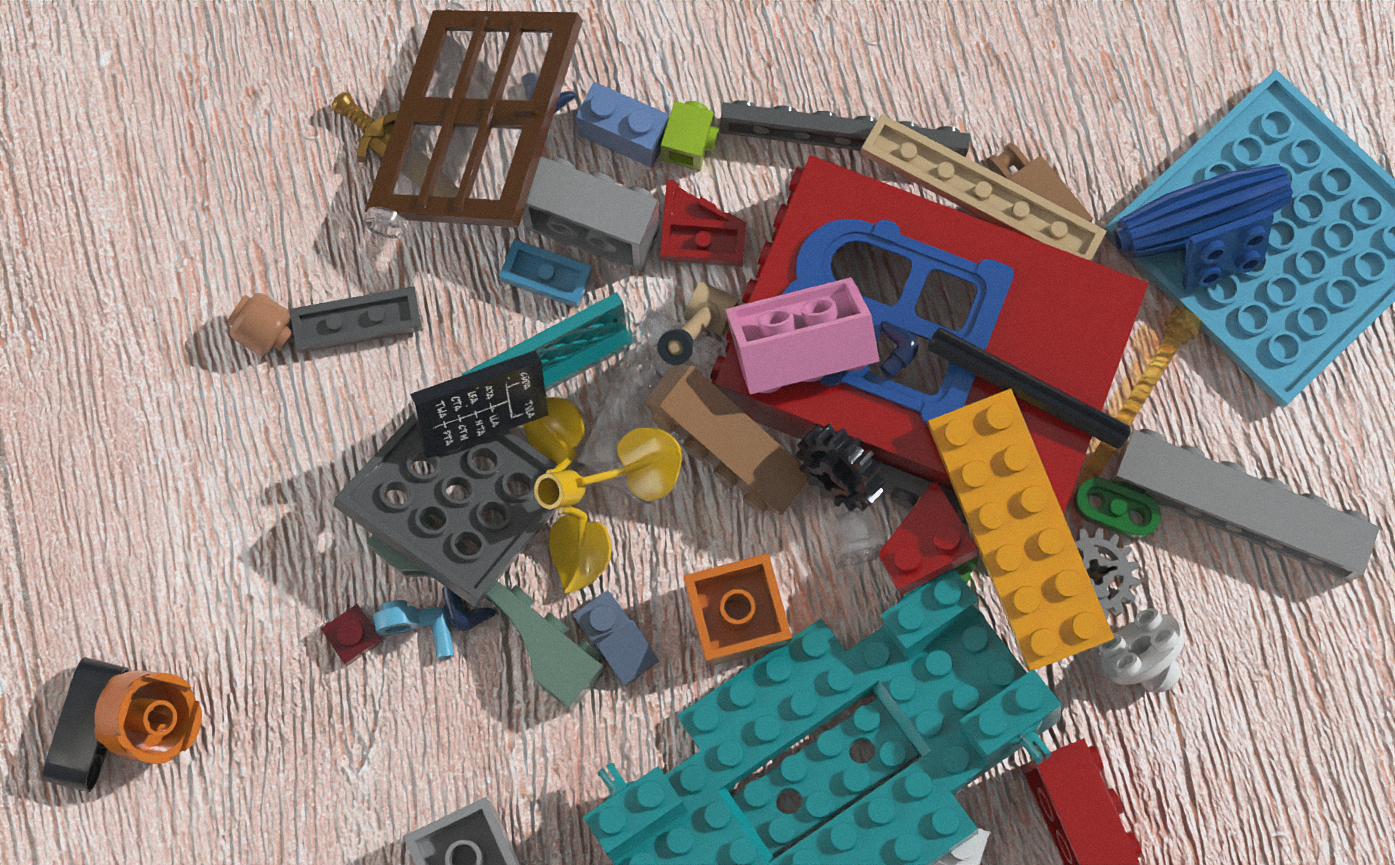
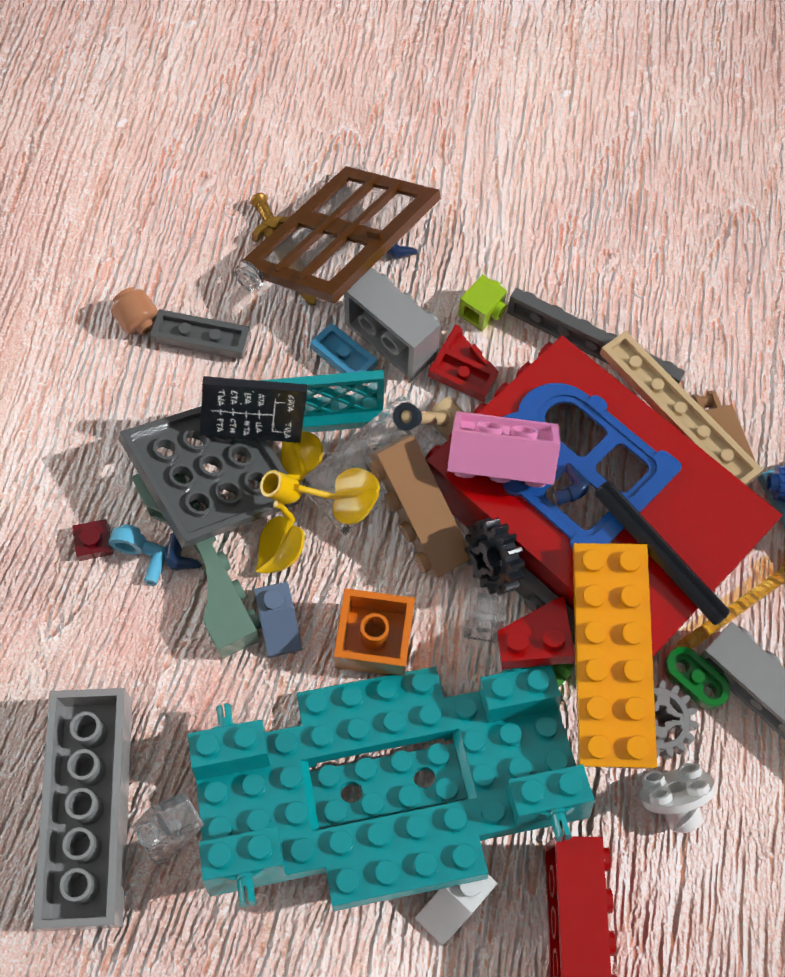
camera: 20 degrees right, 10 degrees down
(622, 124) = (439, 277): medium blue brick -> none

